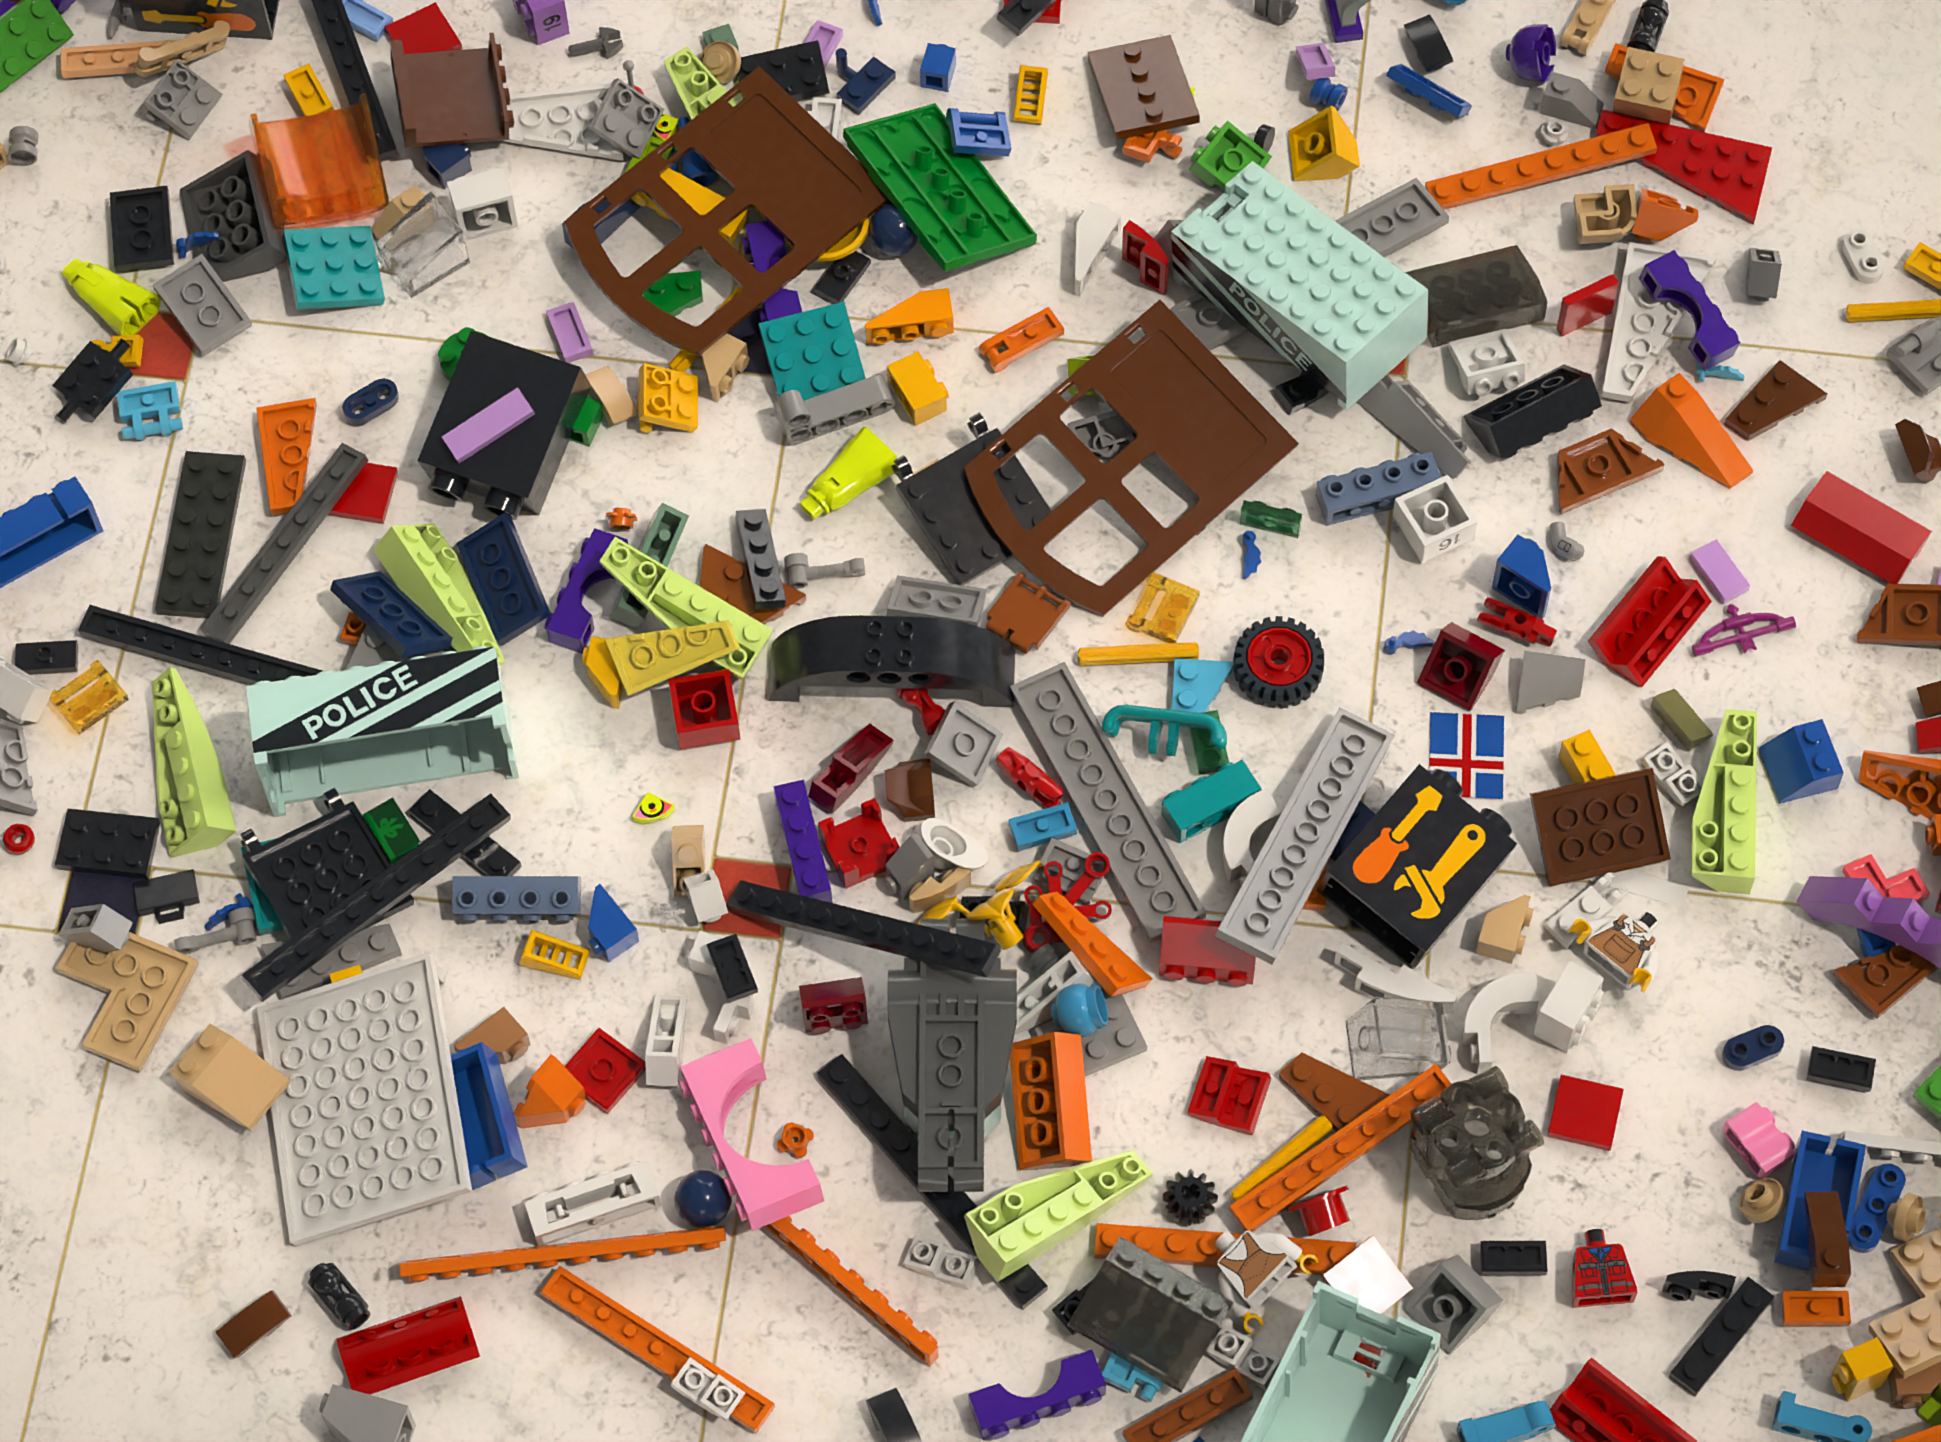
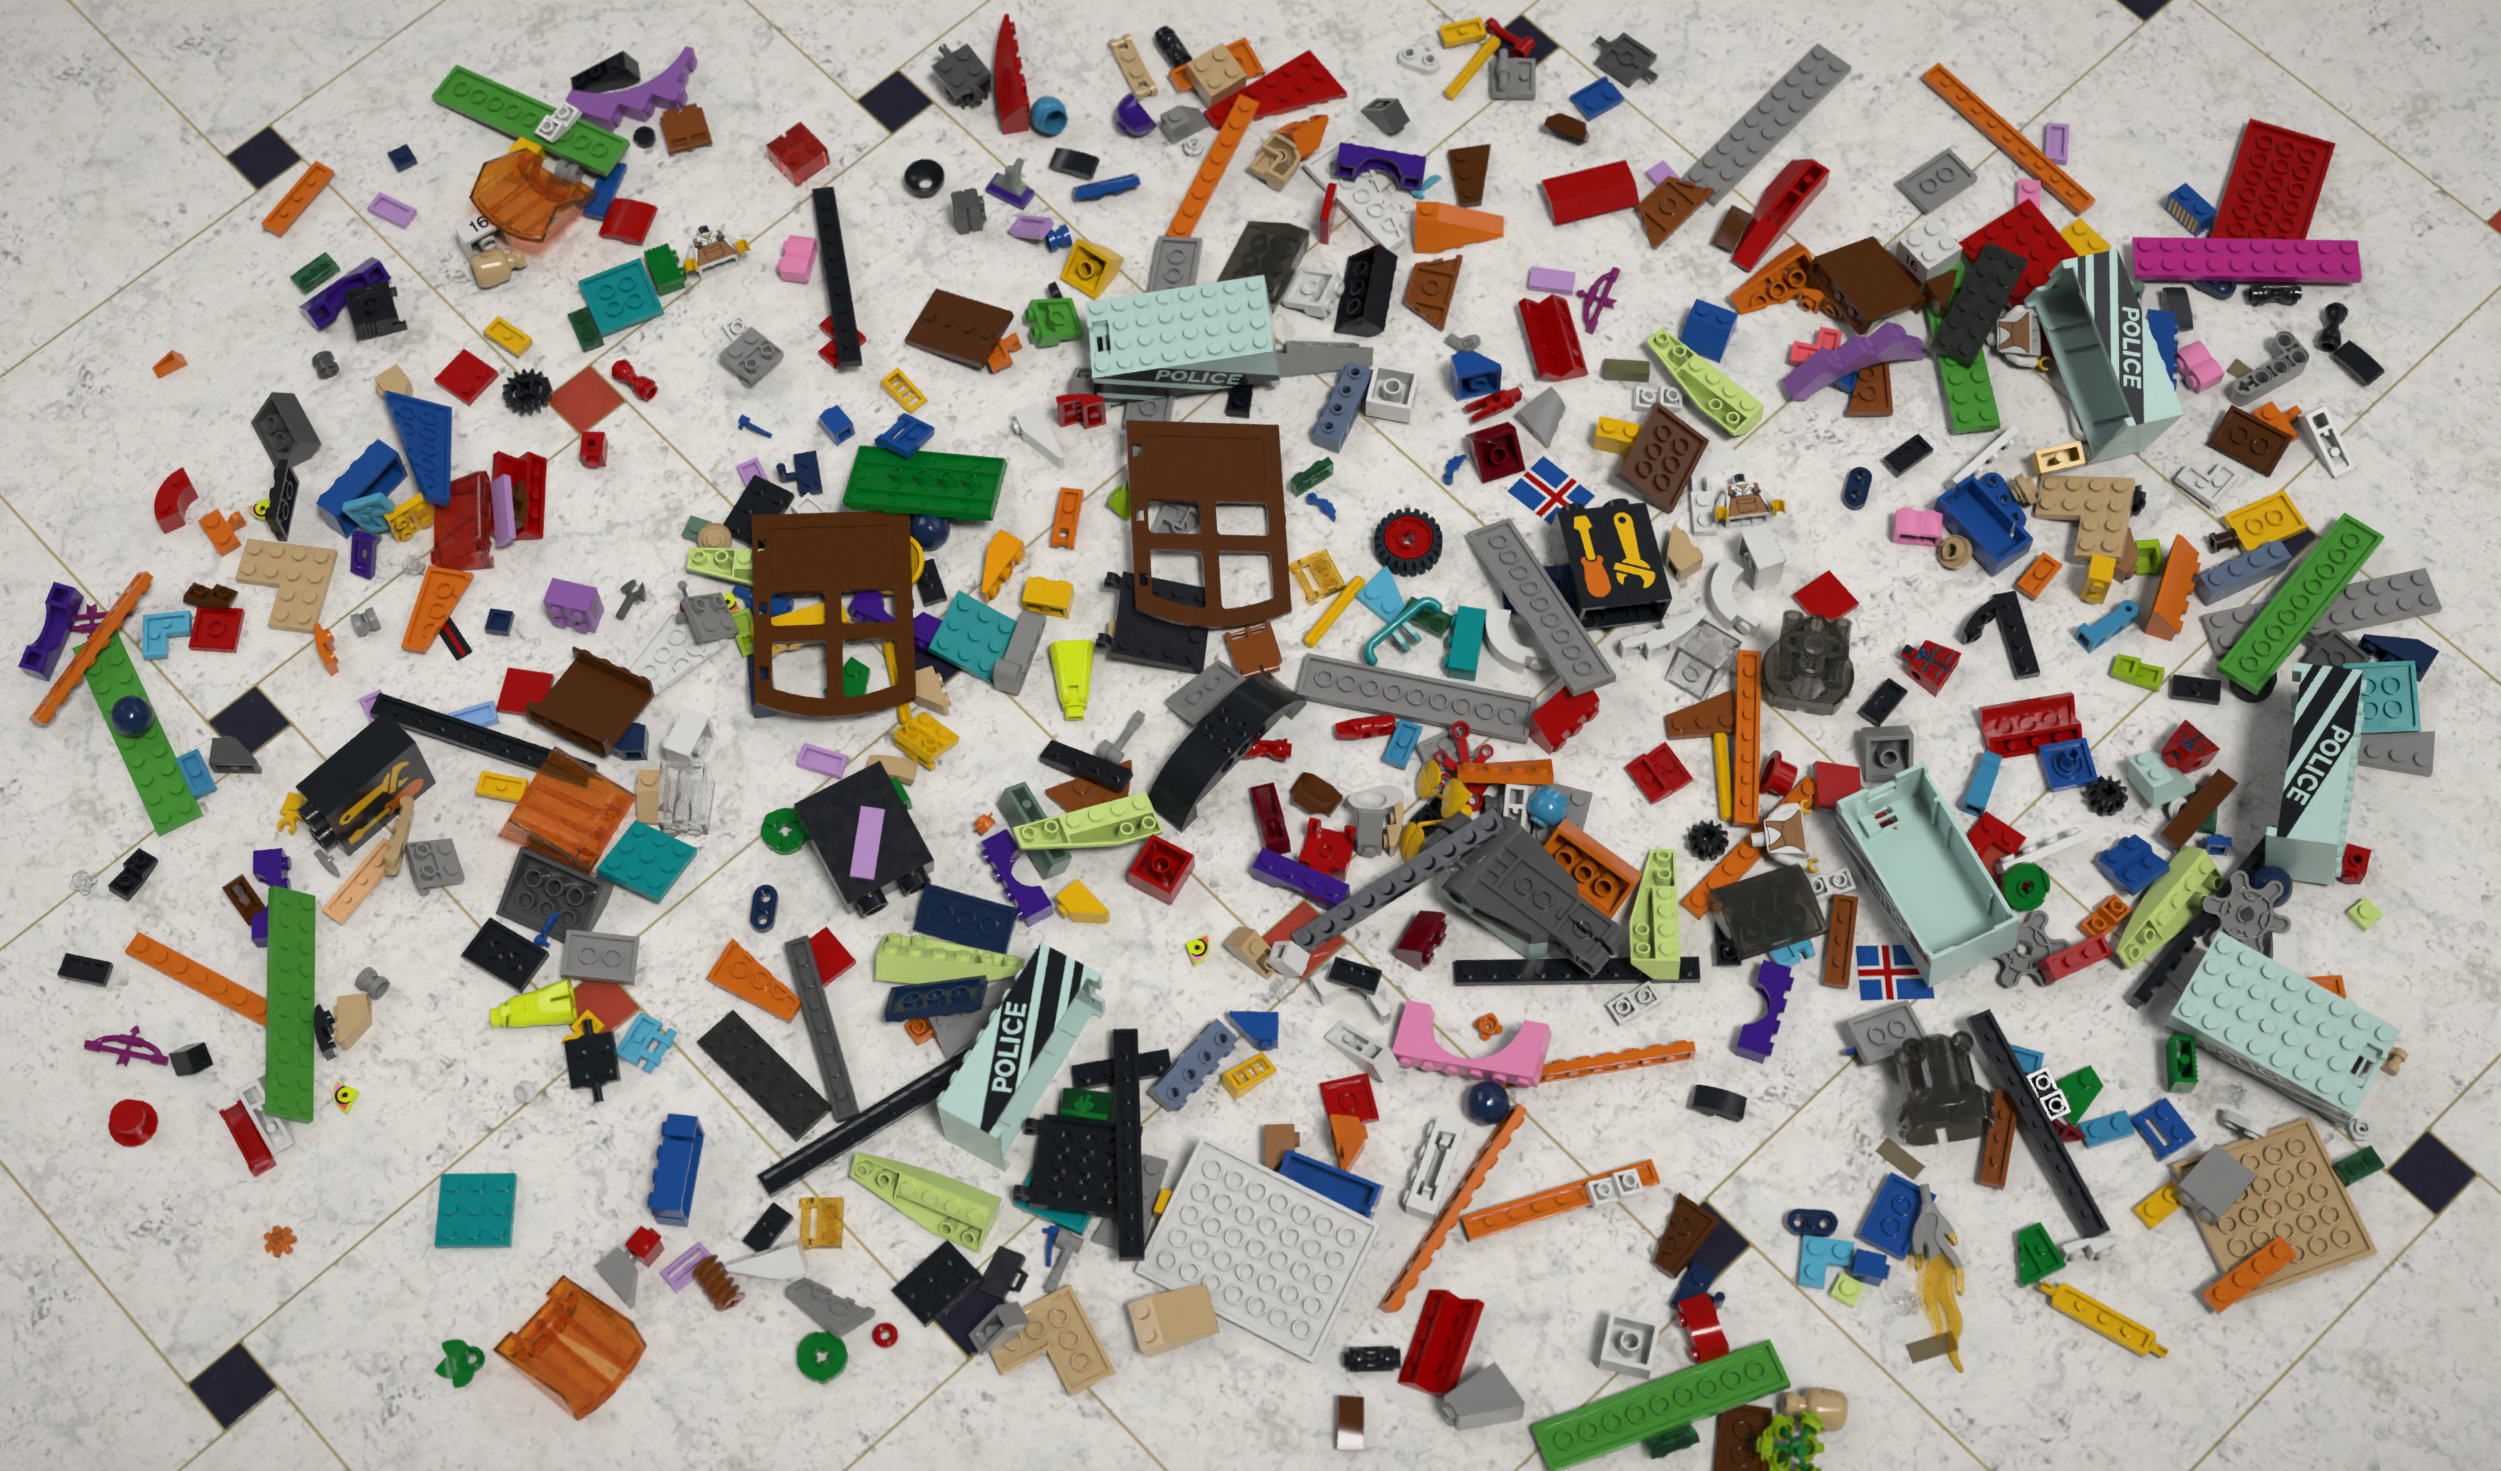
camera: 50 degrees left, 0 degrees up
(663, 654) = (1111, 862): light yellow wing -> none
(963, 744) = (1313, 745): light grey plate -> none
(1827, 1240) = (2015, 533): reddish brown slope -> none

